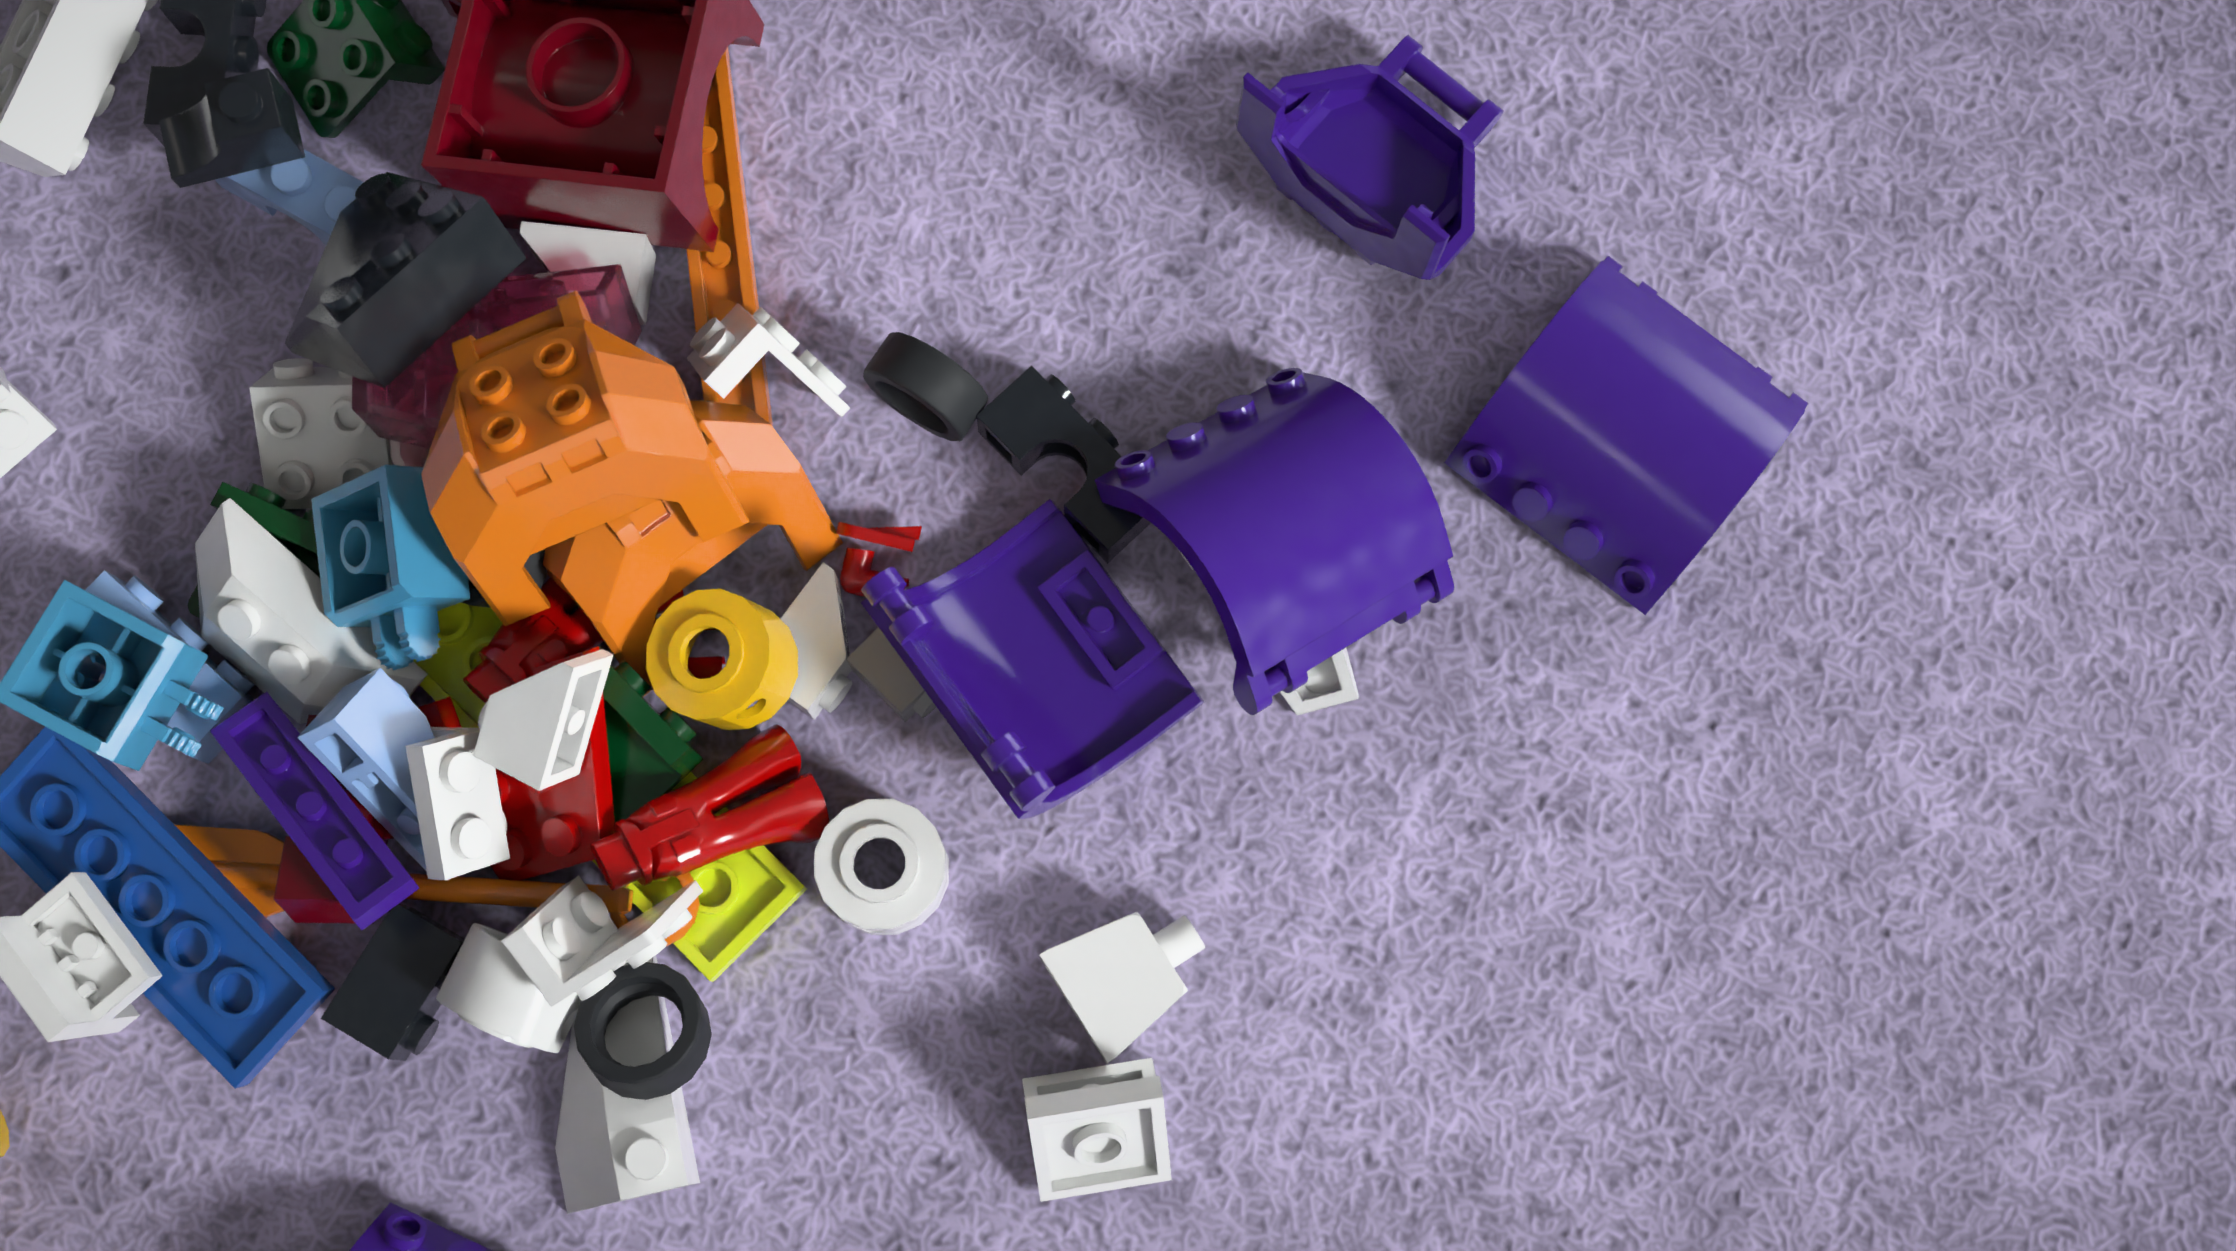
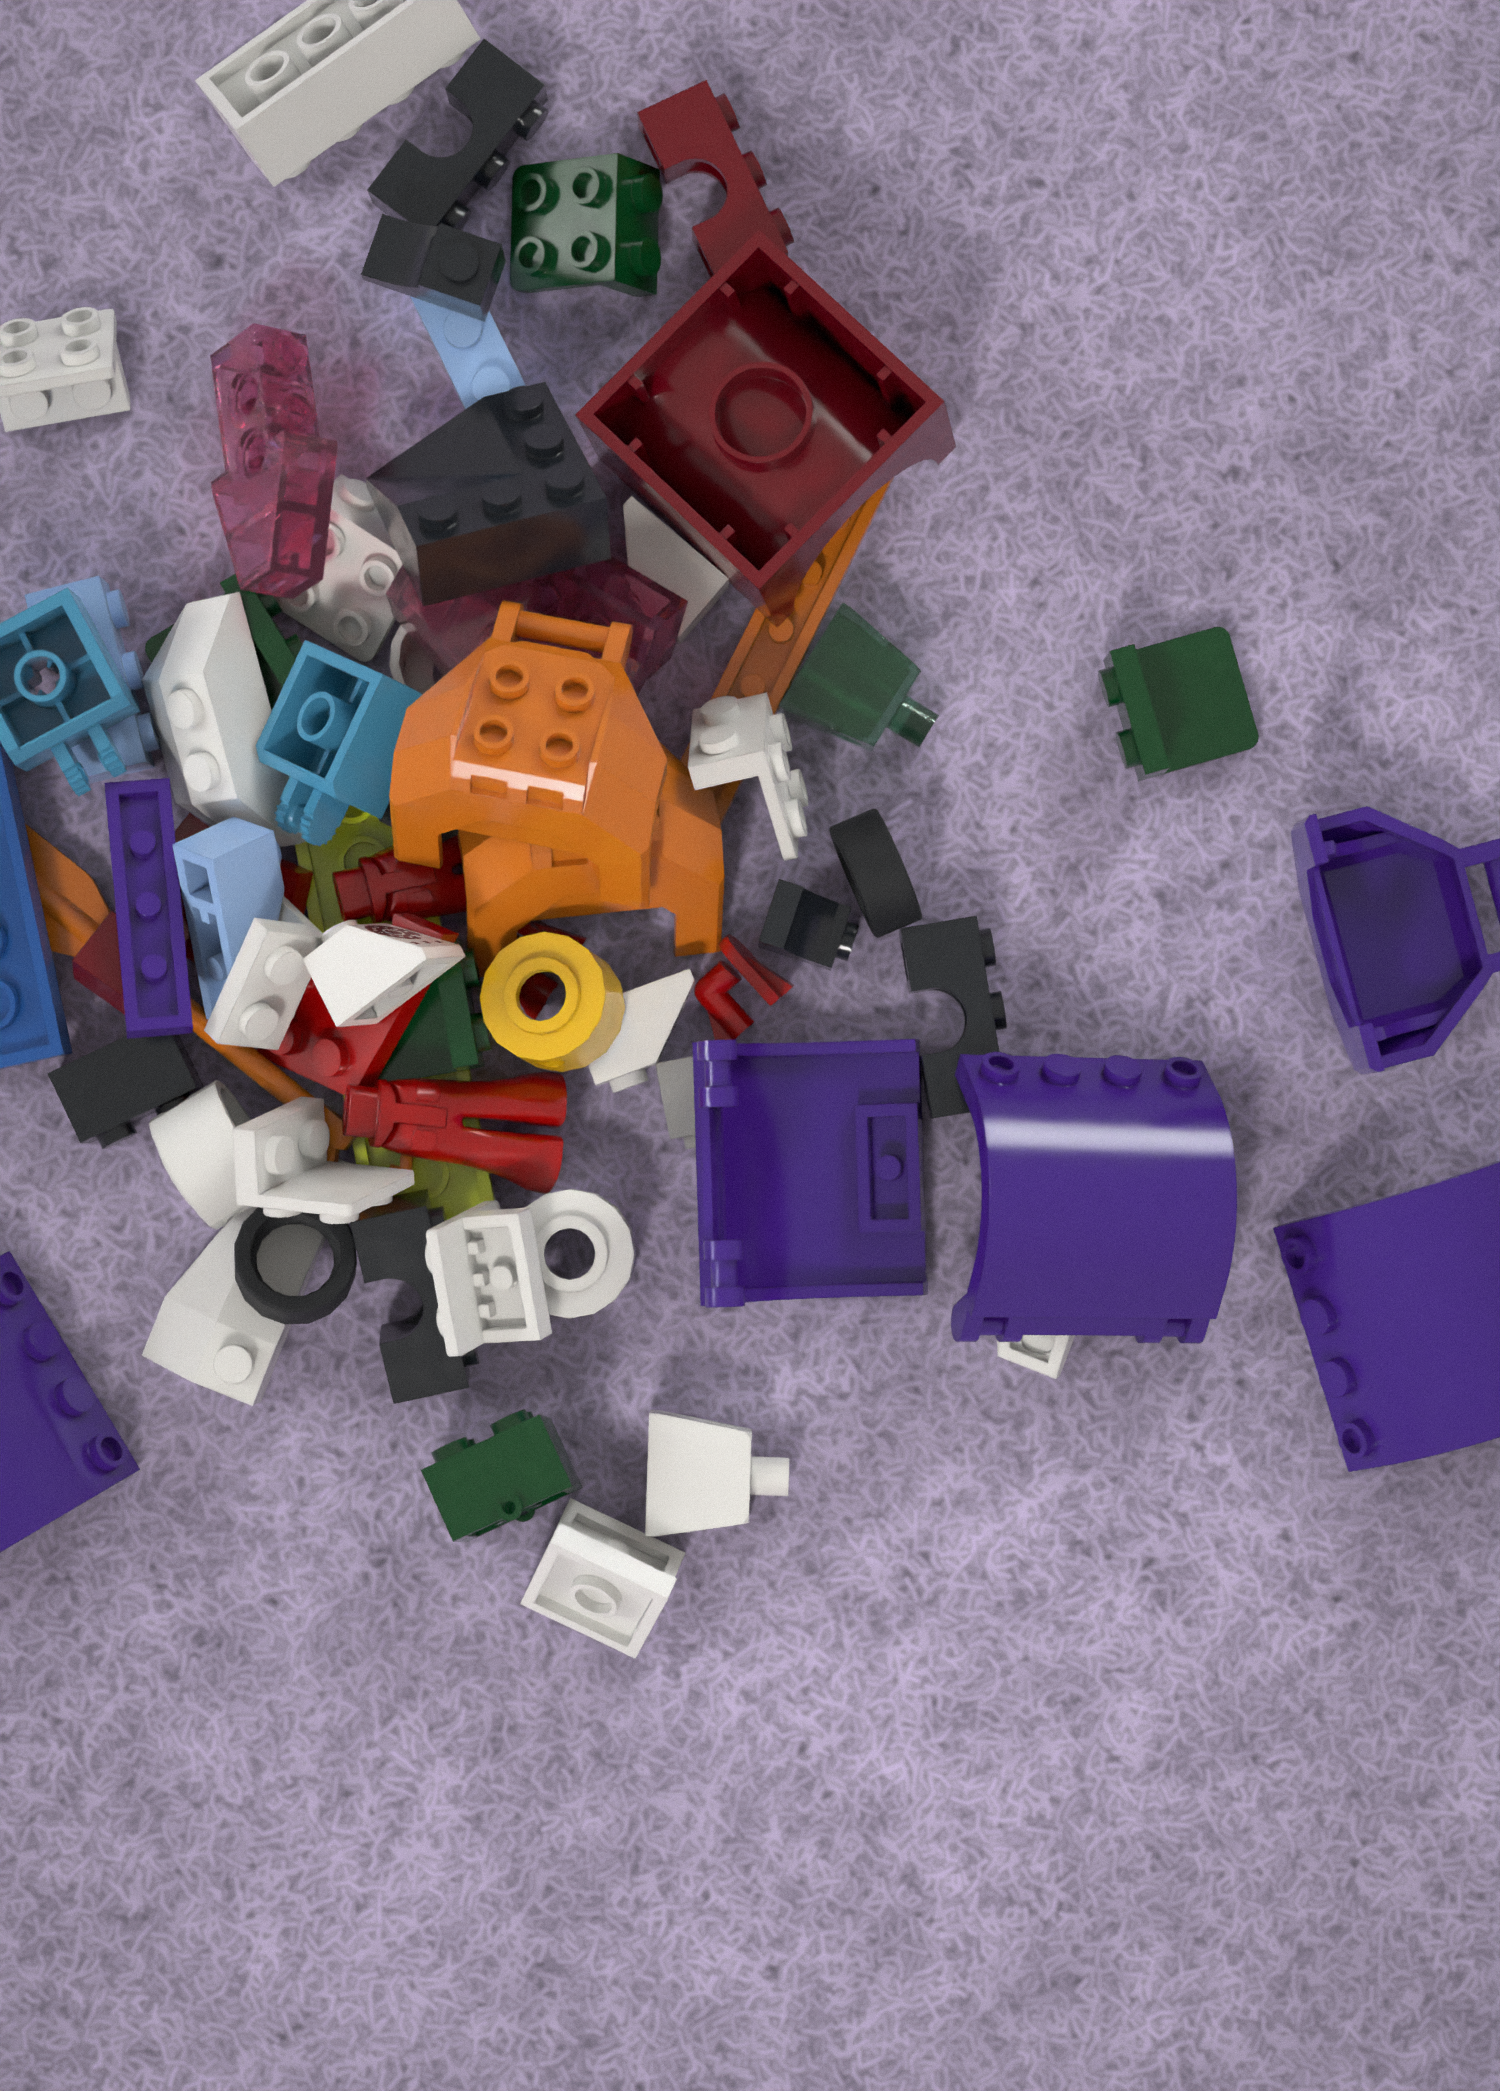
camera: 40 degrees right, 10 degrees up
(199, 381) = (275, 463): none -> clear pink brick
(811, 257) = (857, 686): none -> clear green torso
(815, 1030) = (393, 1246): none -> black arch
(820, 928) = (487, 1278): none -> white bracket
(897, 468) = (807, 927): none -> black arch
(944, 1096) = (501, 1476): none -> dark green brick
(1077, 108) = (1178, 702): none -> dark green bracket

